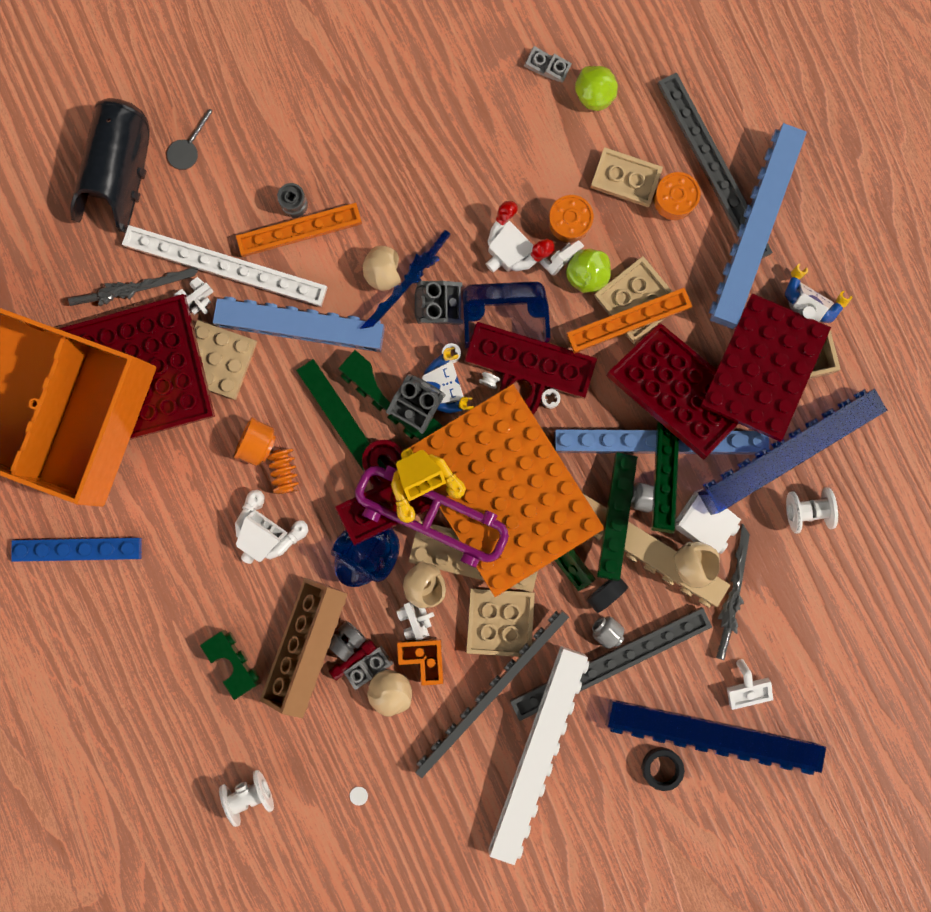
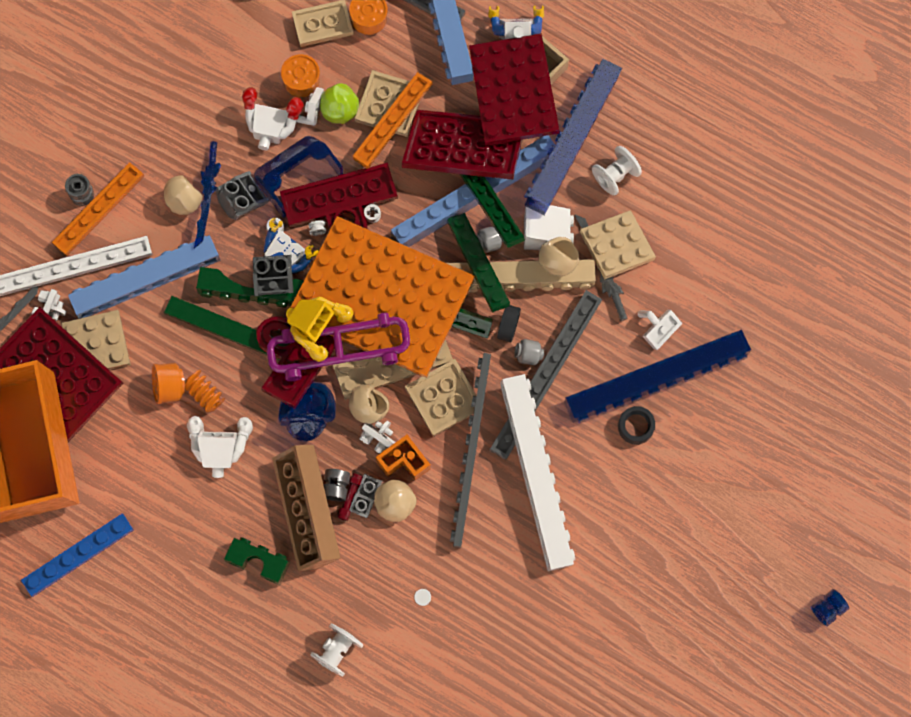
camera: 35 degrees left, 10 degrees down
(763, 582) = (617, 244): none -> tan plate

